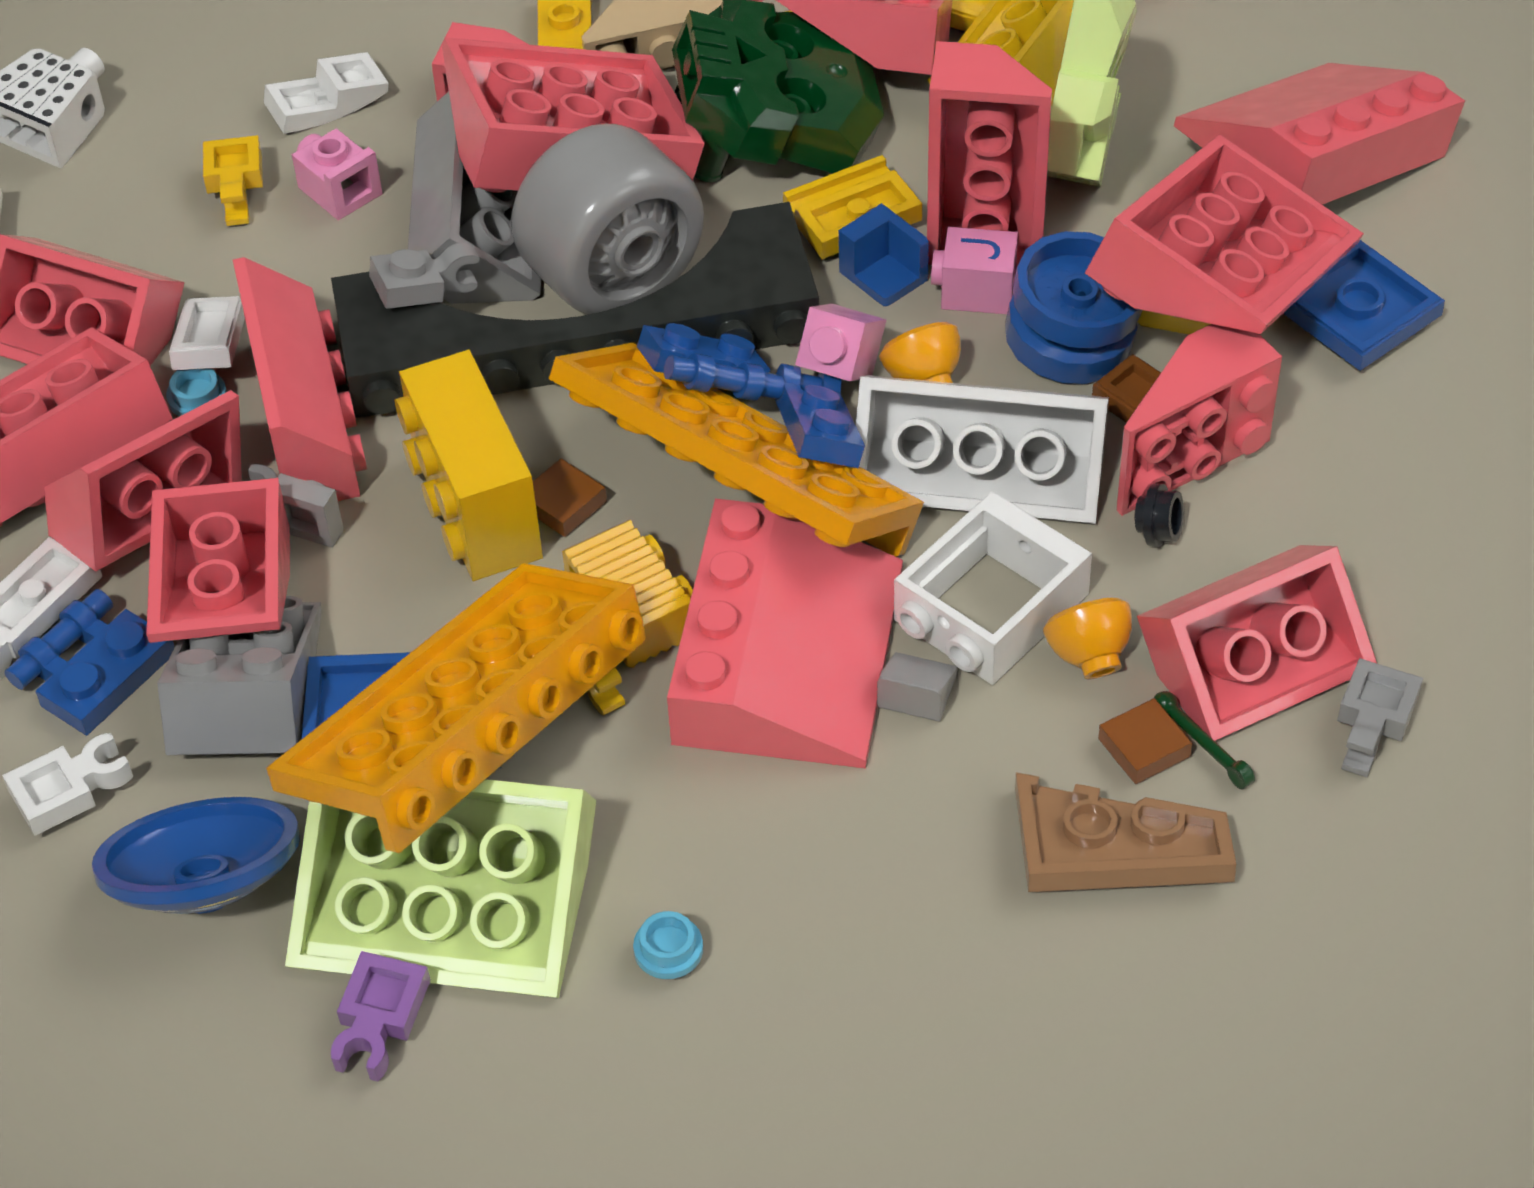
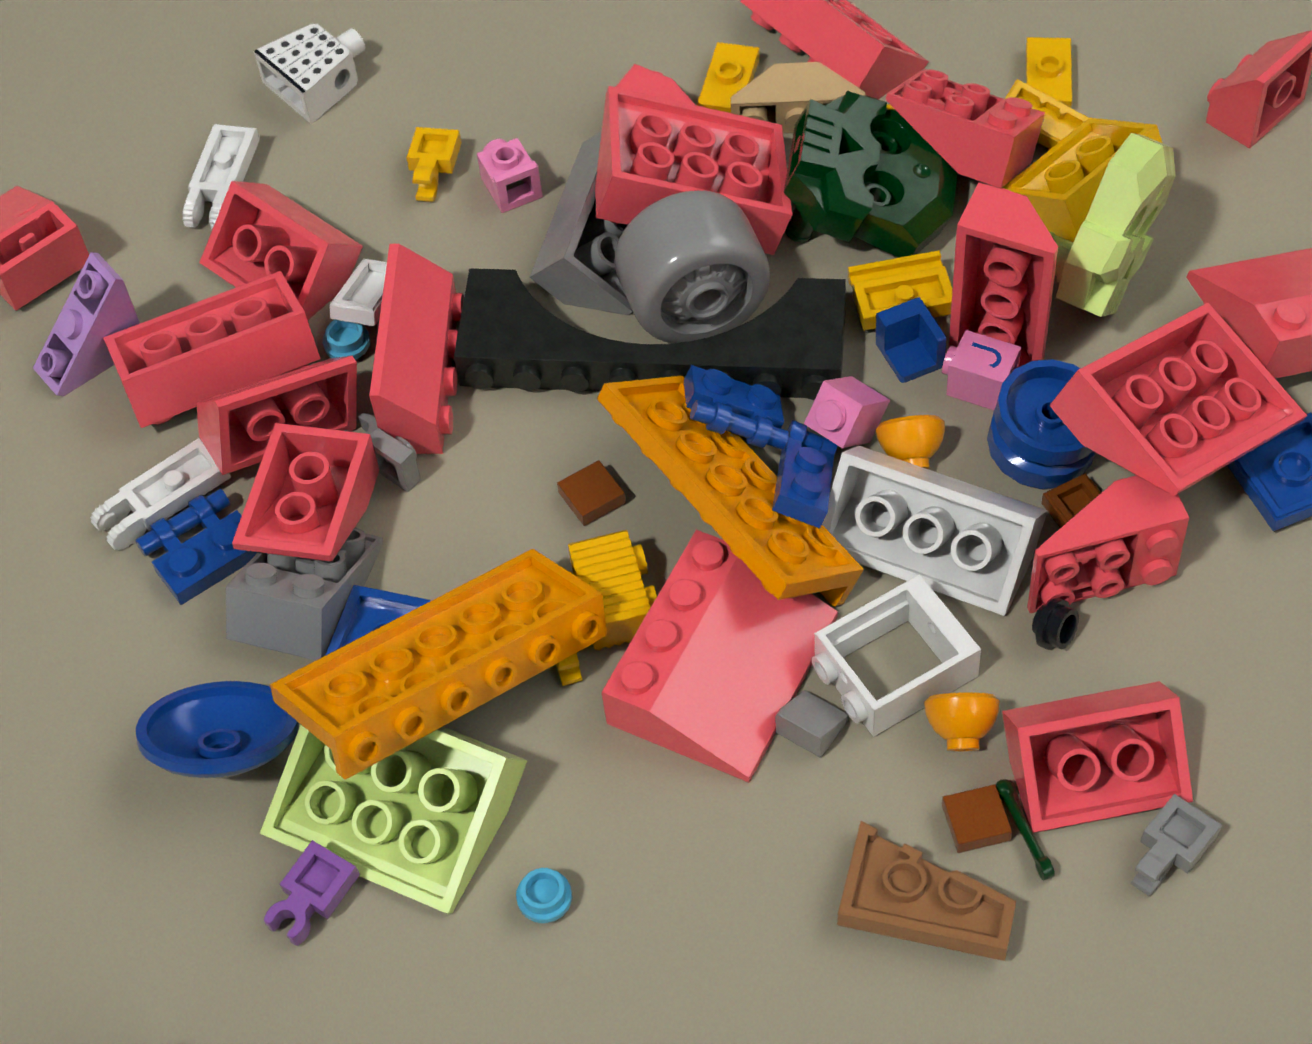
camera: 20 degrees right, 5 degrees up
(61, 786) = (143, 642): white plate -> none
(338, 90) = (537, 100): white slope -> none
(417, 279) = (530, 285): light grey plate -> none
(468, 466) = (518, 454): yellow brick -> none

